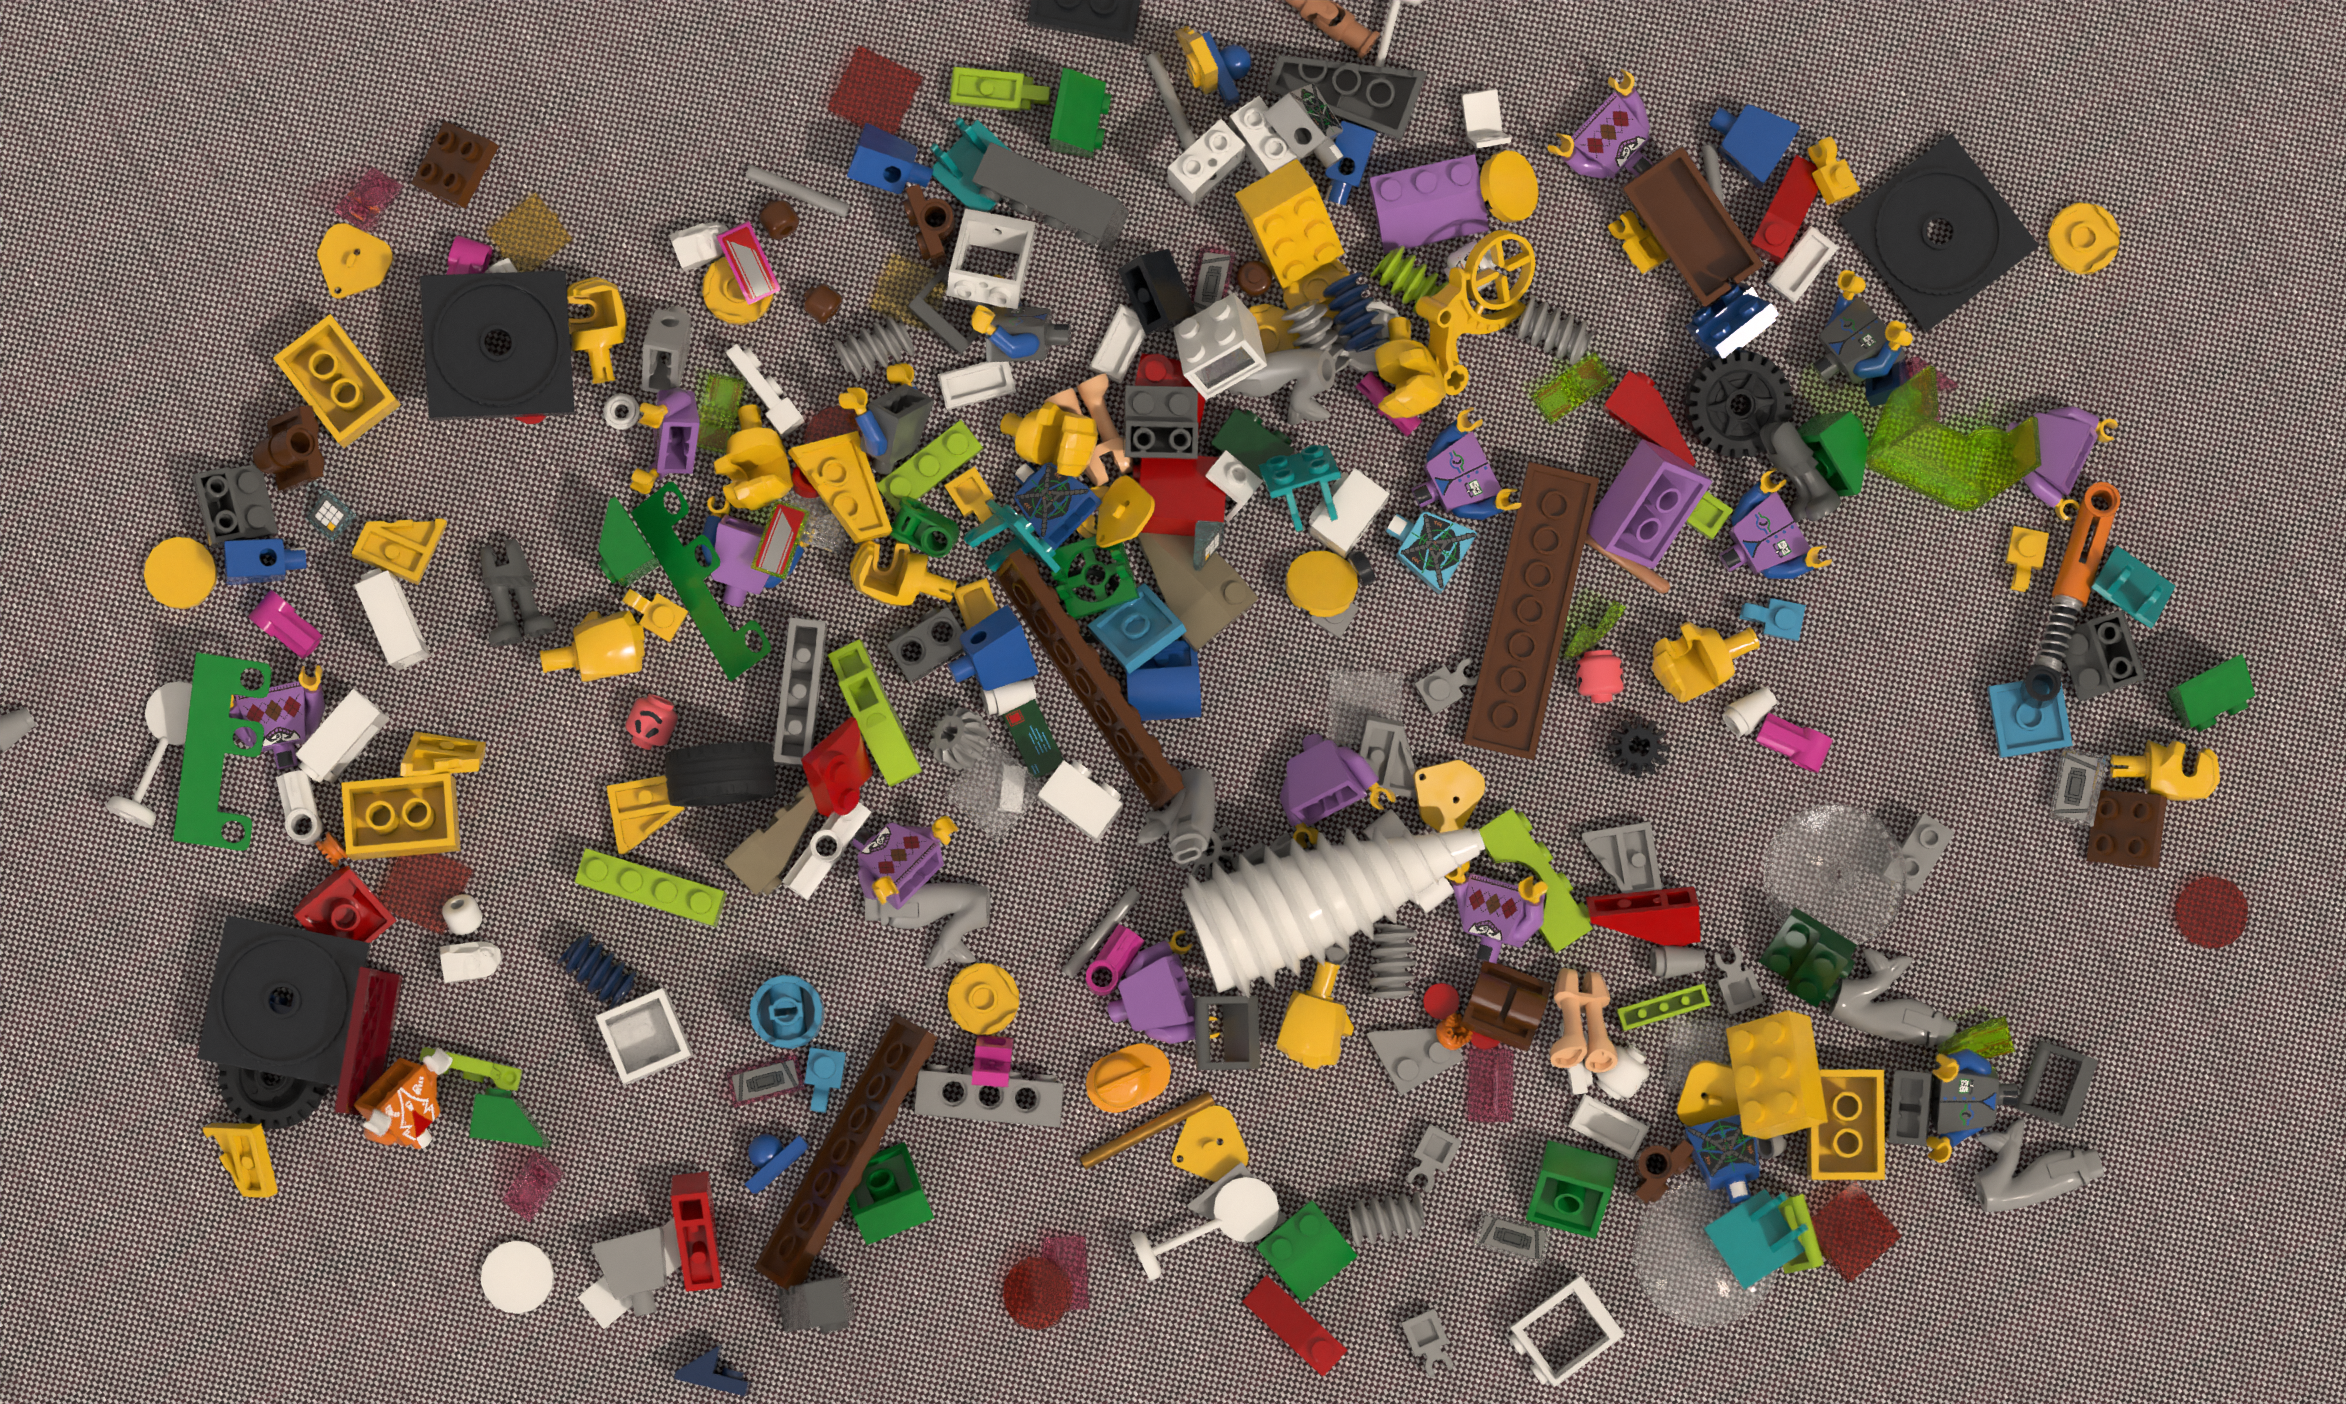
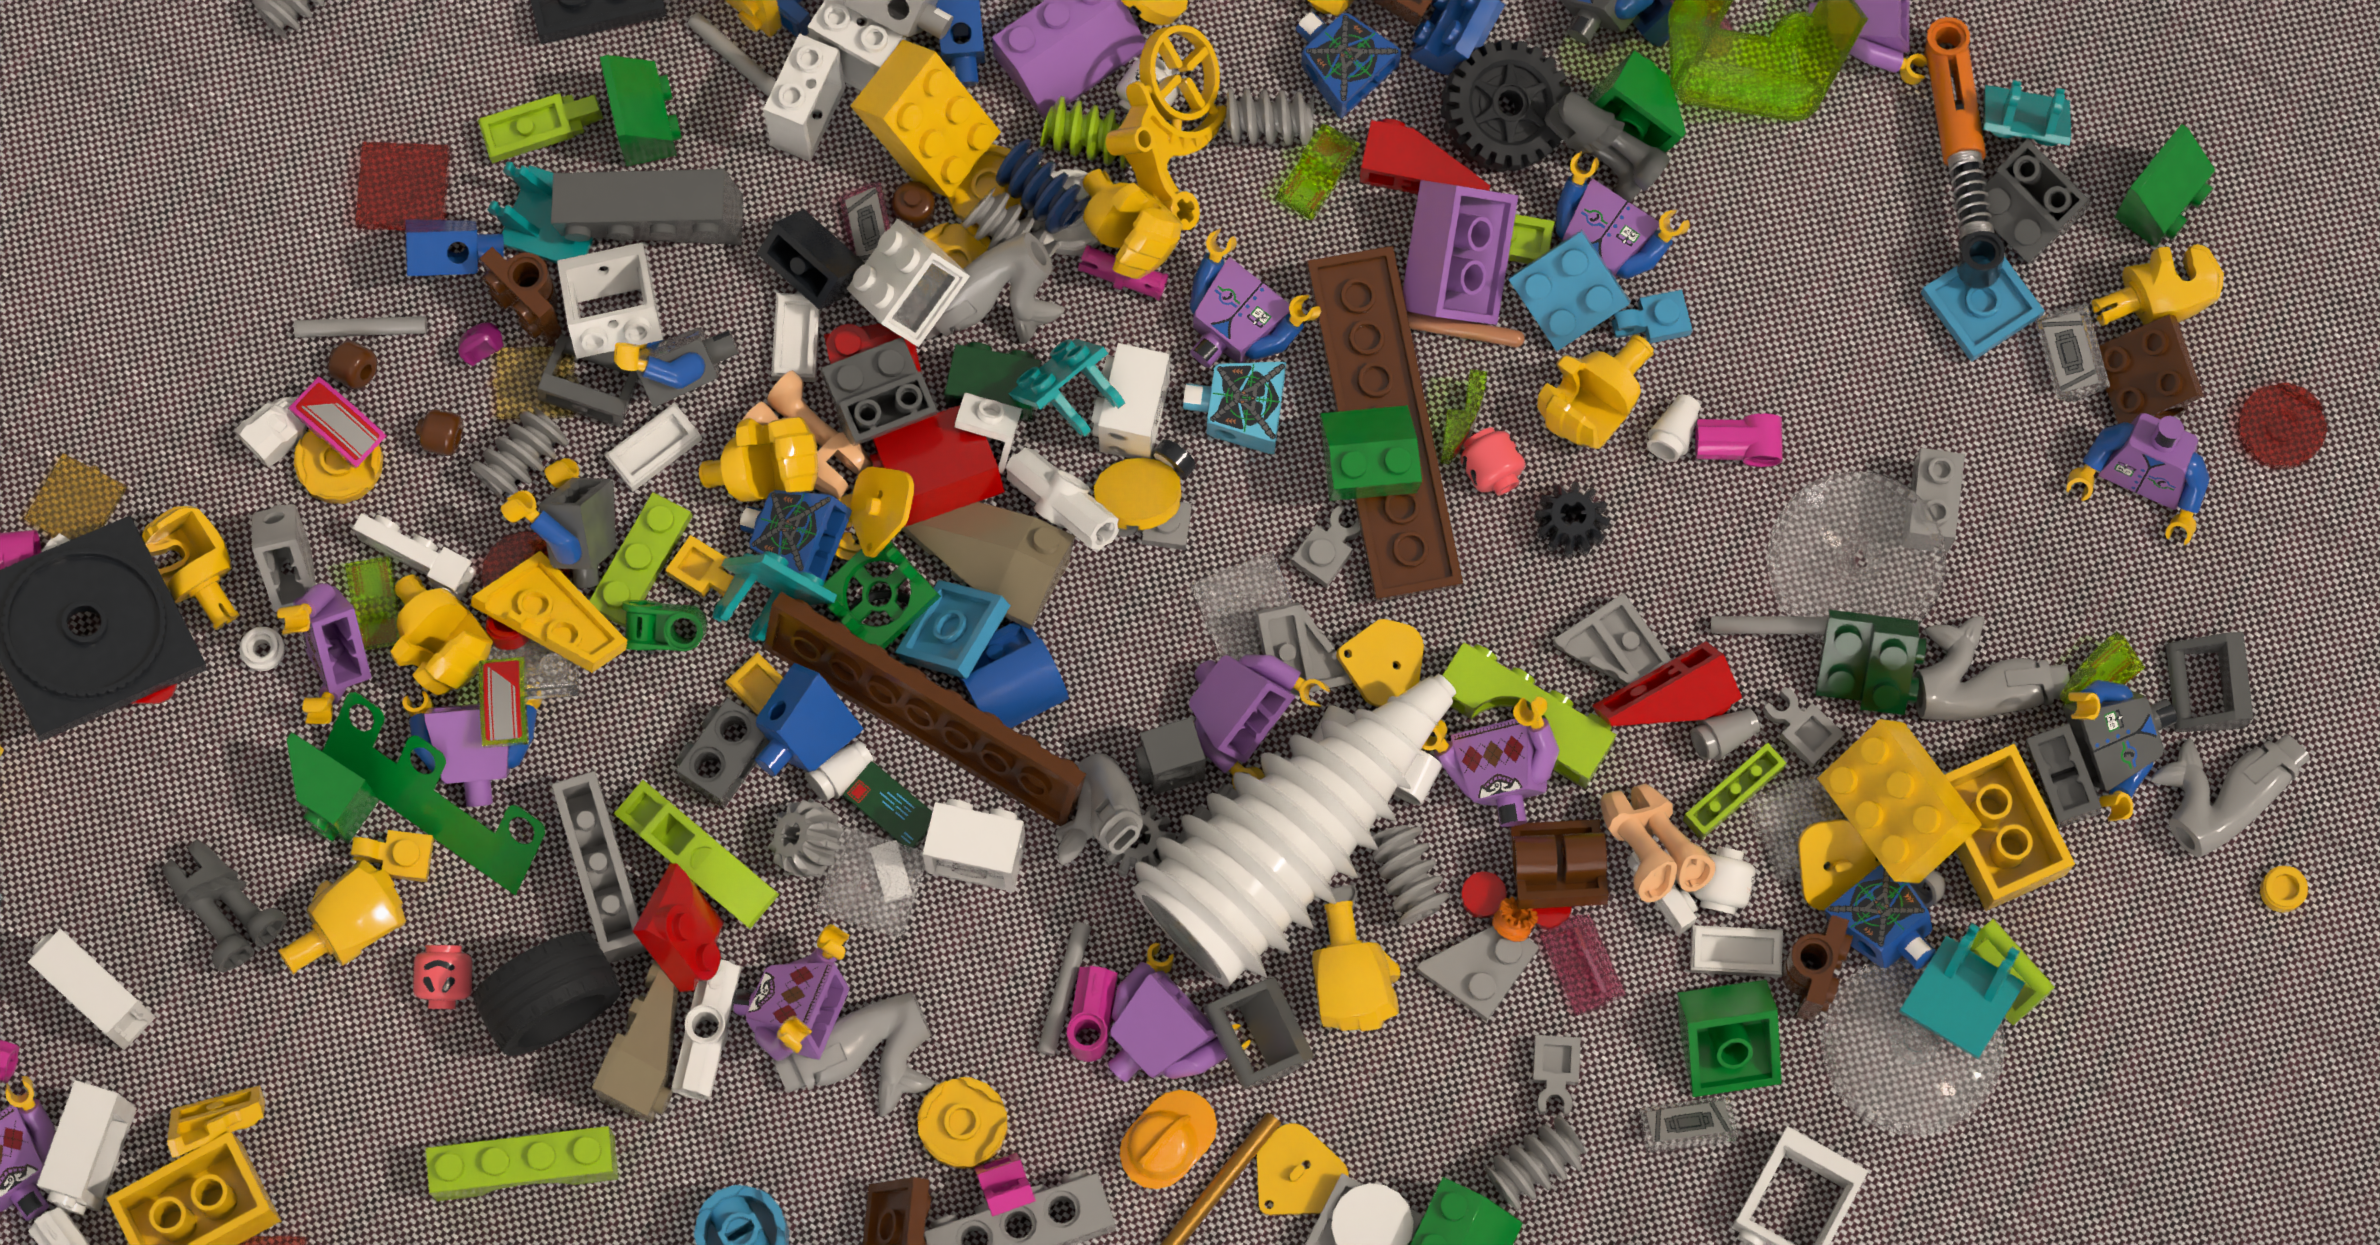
camera: 25 degrees left, 10 degrees down
(399, 546) = (69, 902): yellow wing -> none
(639, 810) = (472, 1081): yellow wing -> none
(880, 245) = (479, 343): none -> magenta piece
(900, 580) = (662, 694): yellow piece -> none
(1207, 541) = (988, 498): clear light blue slope -> none
(1254, 797) = (1170, 756): none -> dark grey brick
(1262, 564) = (1062, 498): none -> white piece
(1508, 631) = (1370, 453): none -> green slope
(1633, 309) = (1345, 59): none -> torso
(1718, 570) = (1569, 290): none -> dark azure plate
(1747, 893) = (1767, 625): none -> light grey bar
(1853, 1232) = (2067, 943): clear red tile -> none
(2026, 552) = (1893, 133): yellow plate -> none
(2036, 1262) = (2283, 889): none -> yellow tile
(2095, 899) = (2153, 461): none -> torso

